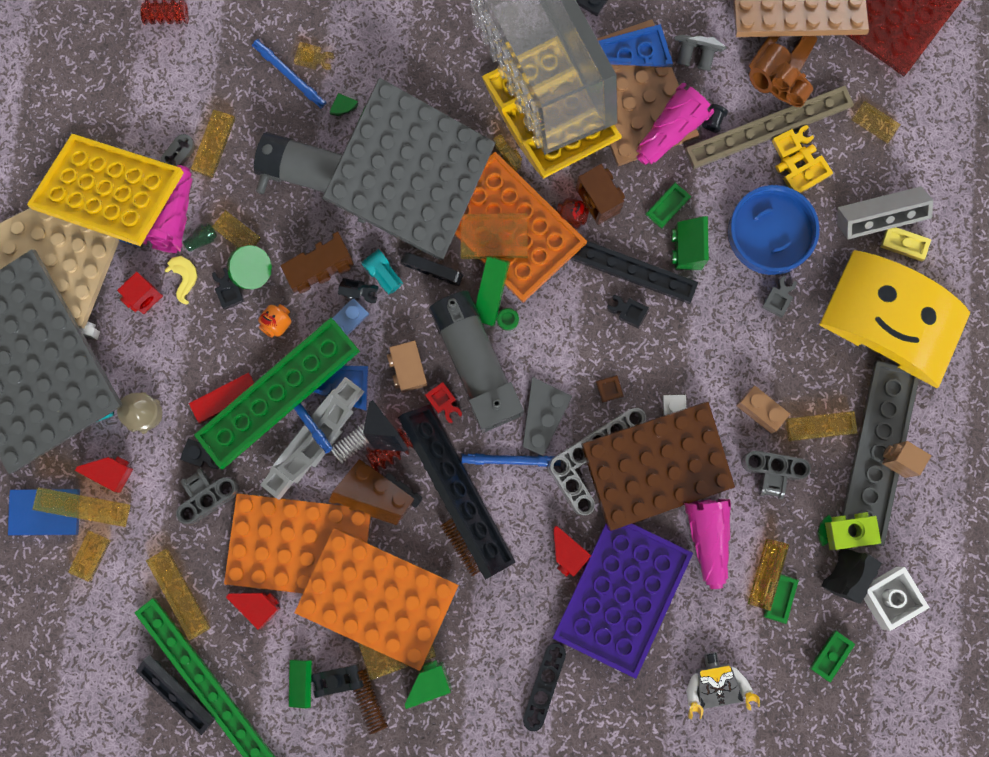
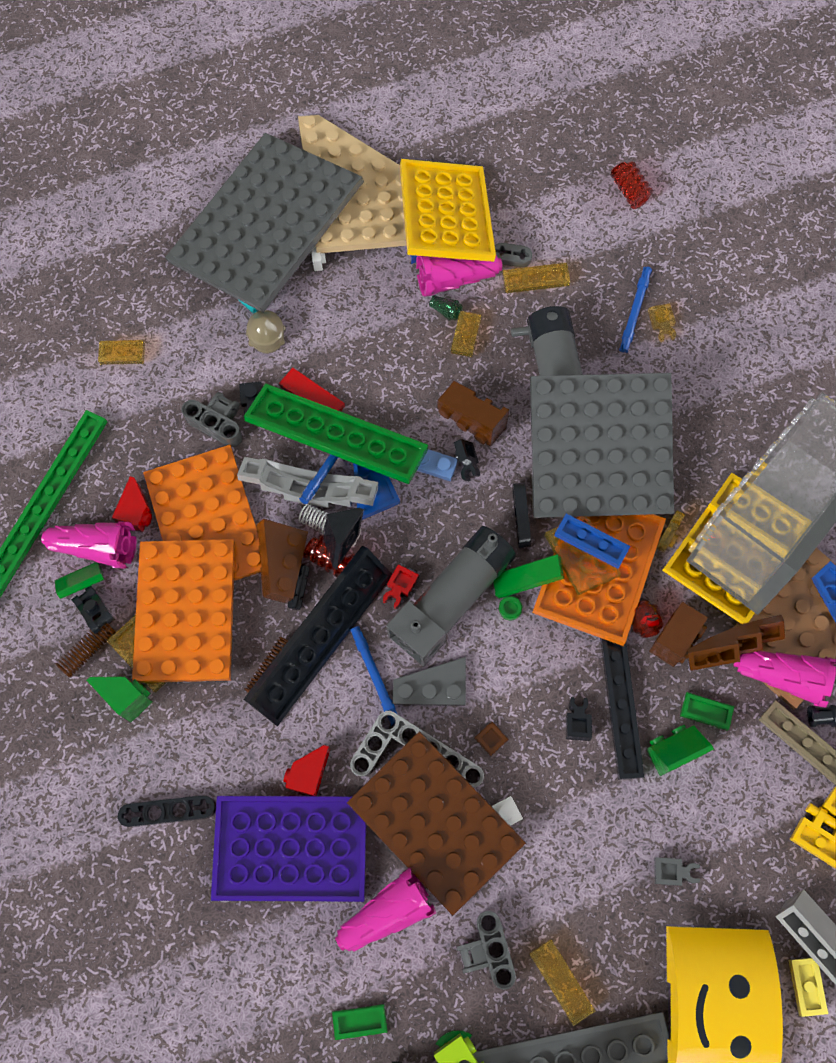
camera: 70 degrees right, 10 degrees down
(26, 521) = (144, 300): blue tile -> none
(81, 507) = (160, 325): clear yellow plate -> none
(107, 472) = (200, 331): red slope -> none
(139, 293) = (369, 280): red brick -> none
(175, 694) = (24, 484): black plate -> none
(178, 594) = (117, 439): clear yellow plate -> none
(189, 276) = (411, 312): light yellow piece -> none
(227, 292) = (409, 352): black plate -> none
(249, 267) = (439, 357): tile -> none
(274, 320) = (402, 401): orange head -> none
(274, 652) = (97, 542): none -> dark pink cone
(343, 105) = (631, 365): green tile -> none
(380, 269) = (497, 469): teal piece -> none
(407, 367) = (417, 536): medium nougat brick -> none
(489, 222) = (592, 541): none -> blue plate
(631, 161) = (730, 644): none -> reddish brown slope
(717, 686) = (237, 992): torso -> none
(763, 409) = (547, 907): medium nougat brick -> none
(768, 574) = (377, 994): clear yellow plate -> none
(773, 230) = (741, 831): blue brick -> none

